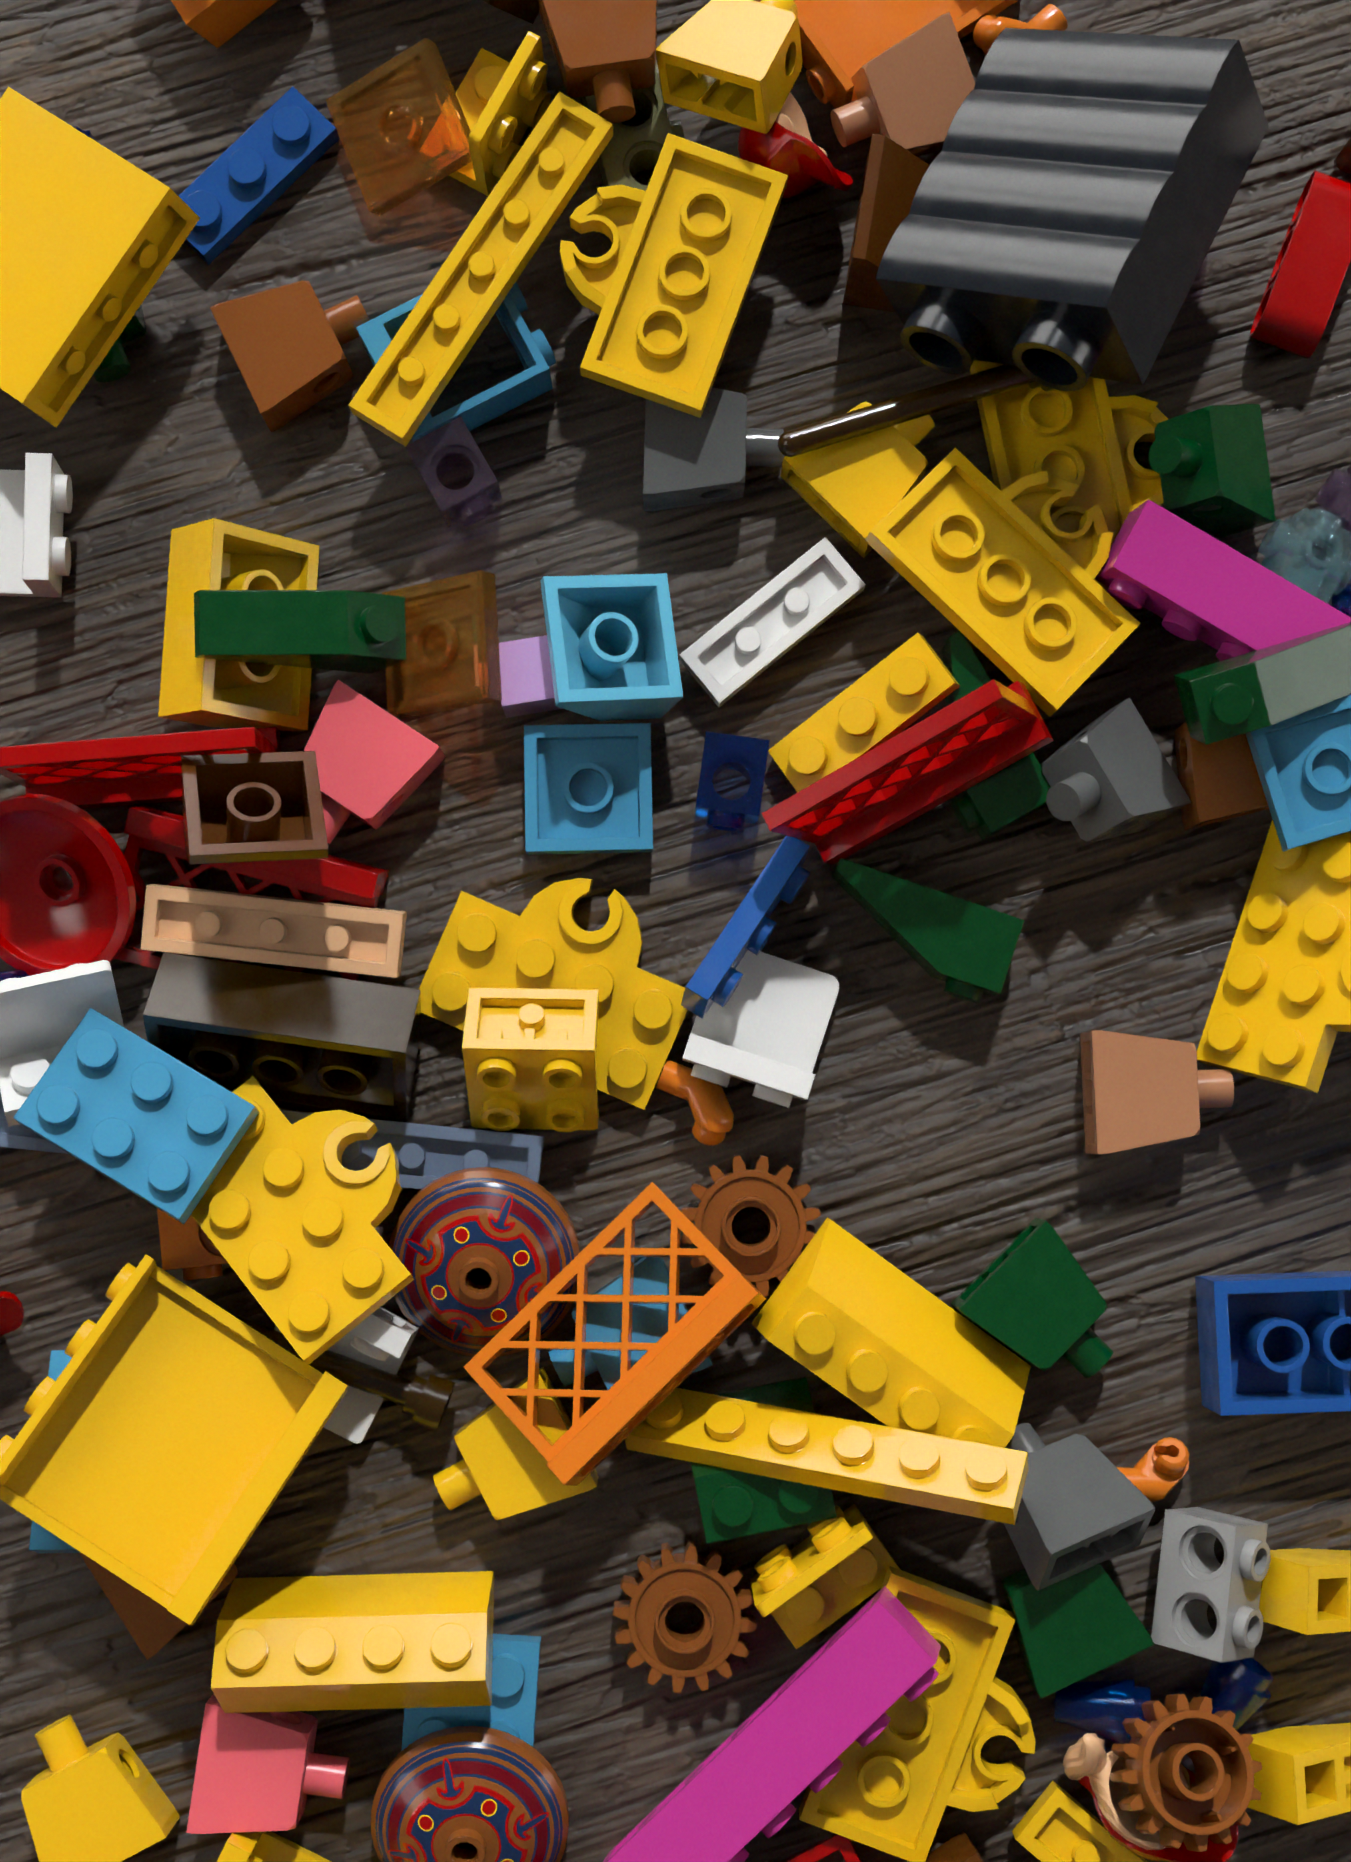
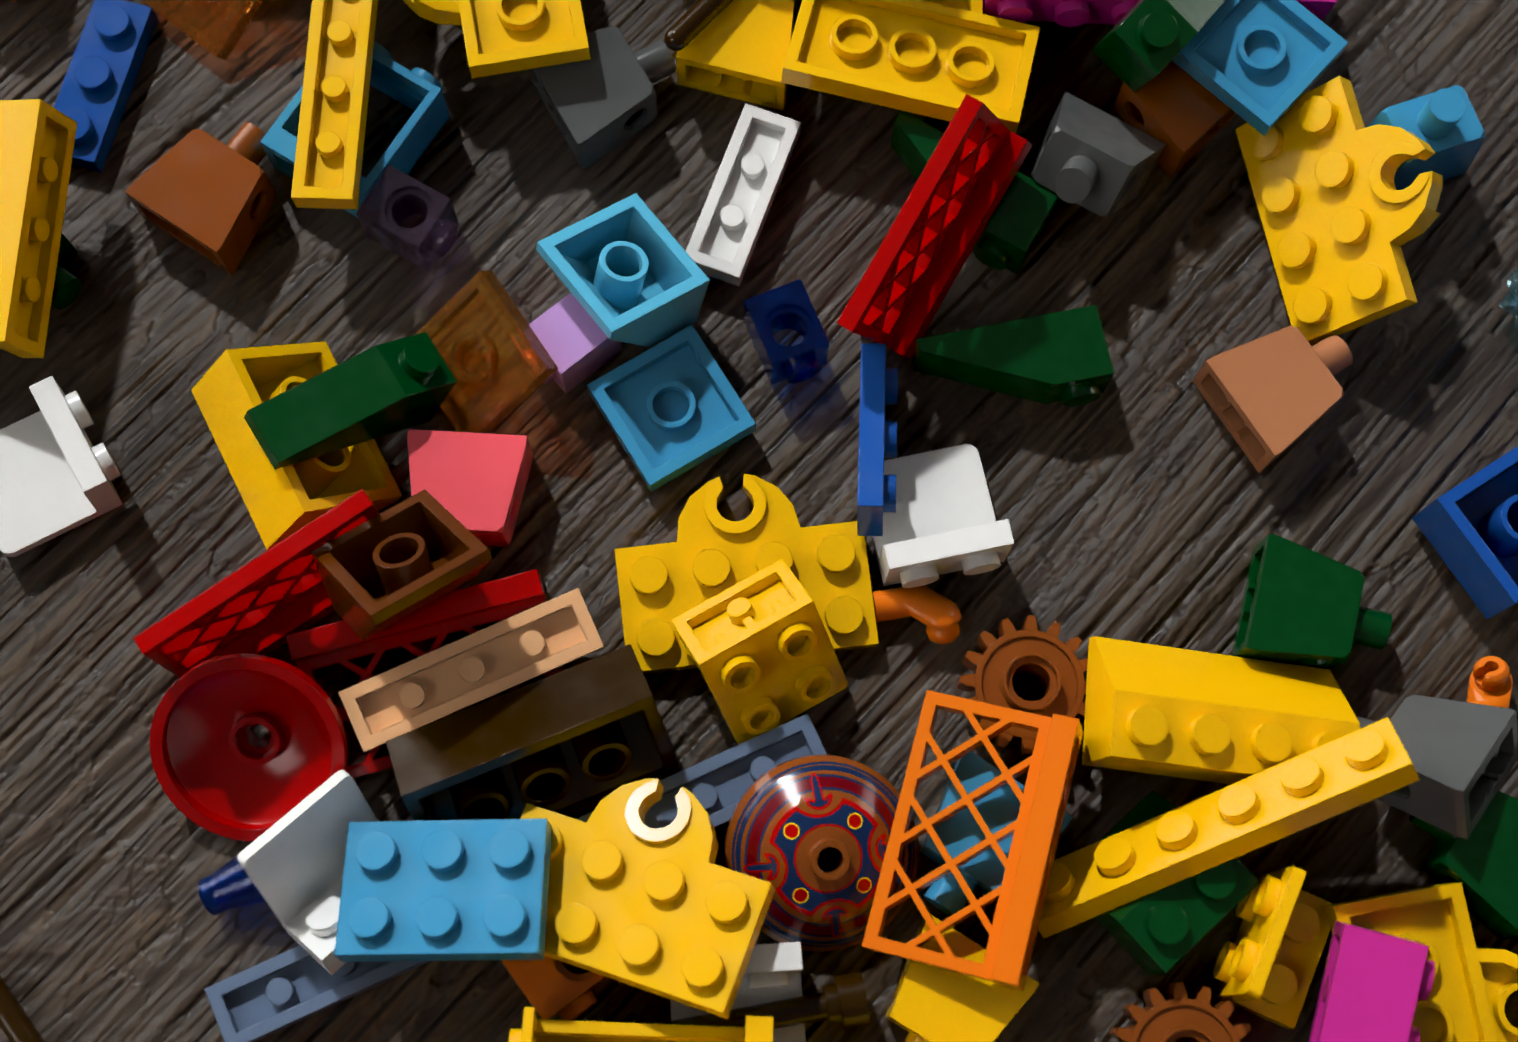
camera: 30 degrees left, 10 degrees down
(865, 713) = (867, 208): yellow plate -> none

